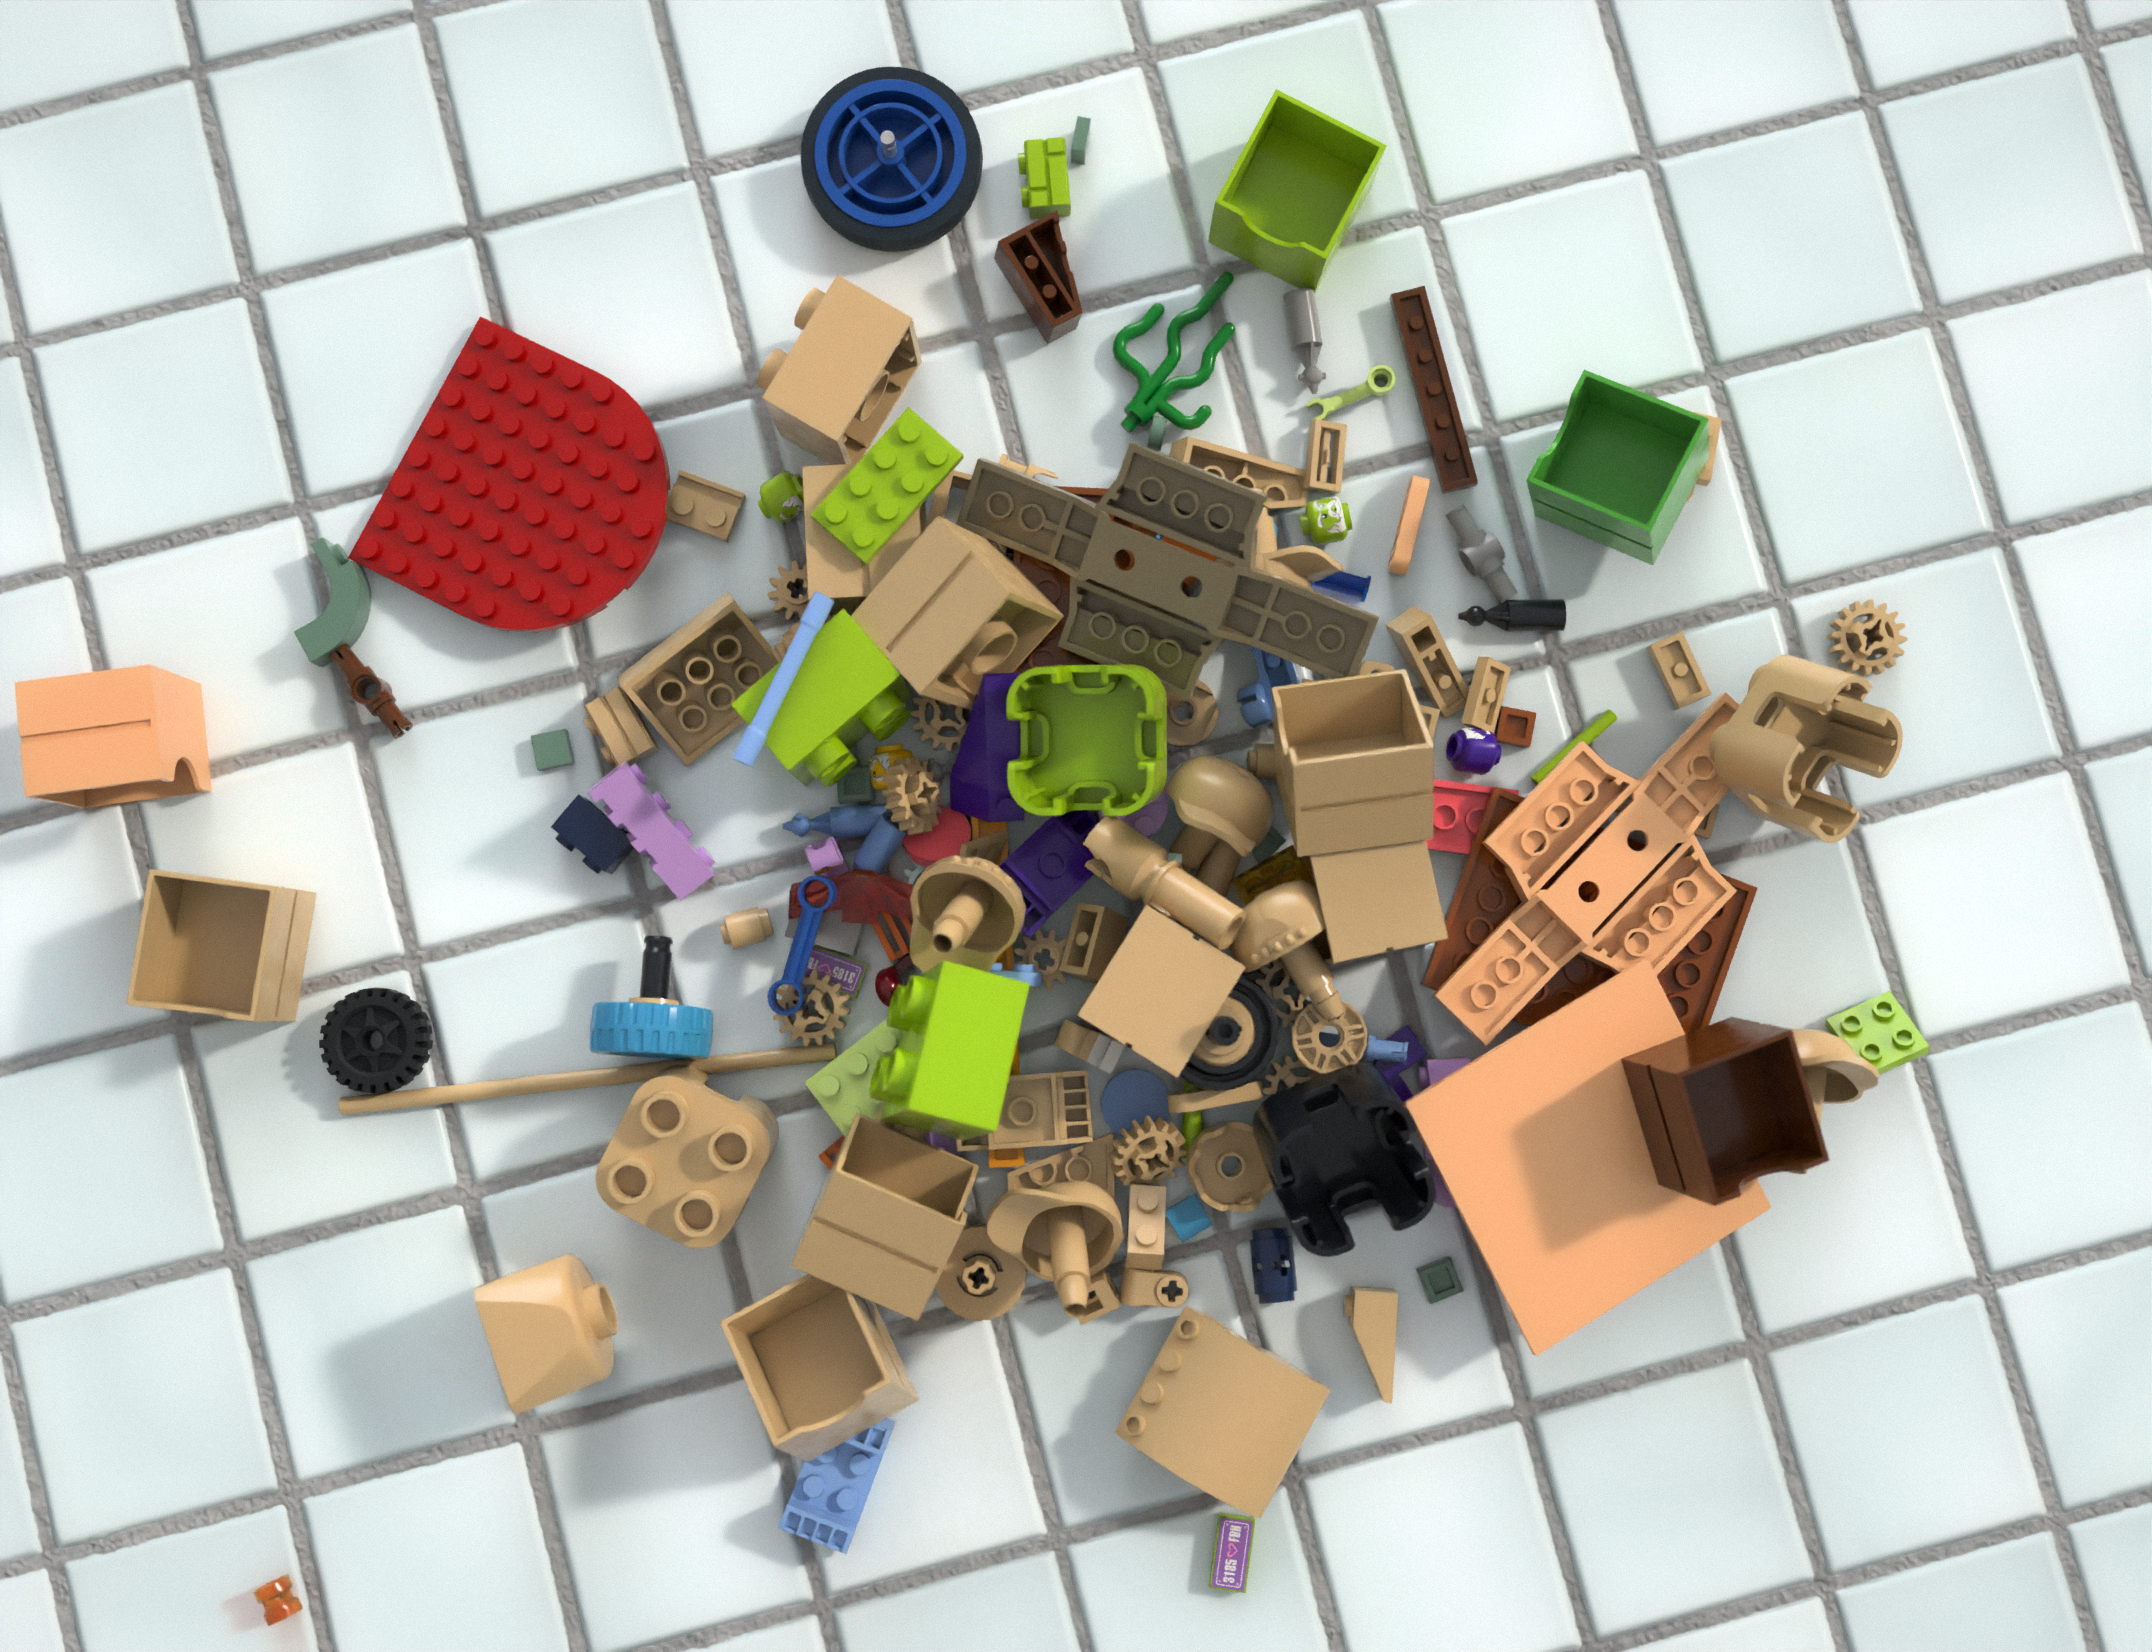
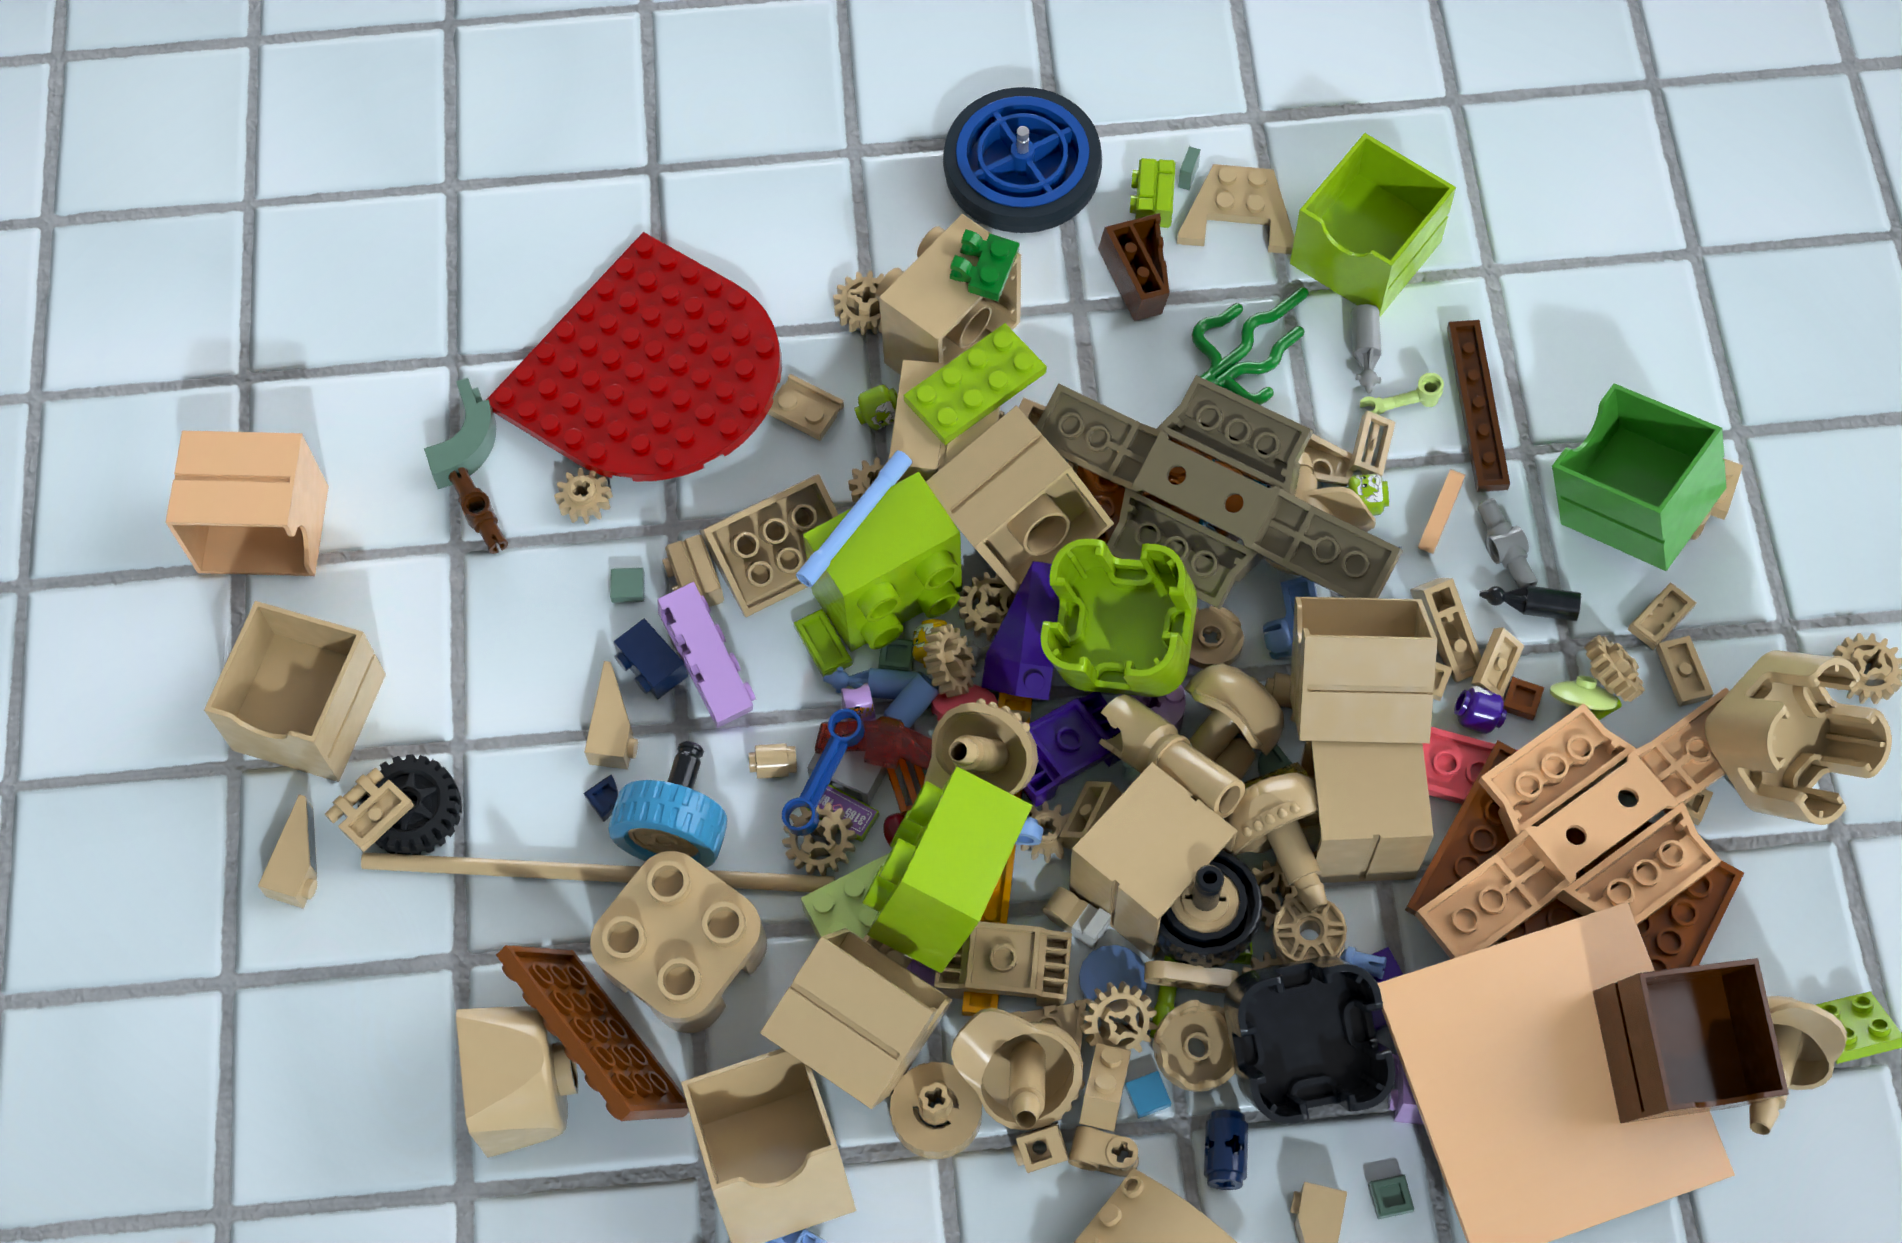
camera: 15 degrees right, 20 degrees down
(269, 1121) = (292, 866): none -> tan slope
(341, 1068) = (375, 815): none -> tan plate
(471, 661) = (595, 498): none -> tan gear
(569, 921) = (610, 733): none -> tan slope
(578, 994) = (603, 797): none -> dark blue tile
(621, 1272) = (594, 1033): none -> dark orange plate
(734, 367) = (858, 303): none -> tan gear
(775, 784) = (822, 643): none -> lime tile
(883, 343) = (993, 266): none -> green plate
(1143, 166) = (1239, 197): none -> tan wing
(1578, 720) = (1585, 692): none -> yellowish green dish
(1608, 685) = (1614, 668): none -> tan gear
(1650, 610) = (1661, 616): none -> tan plate

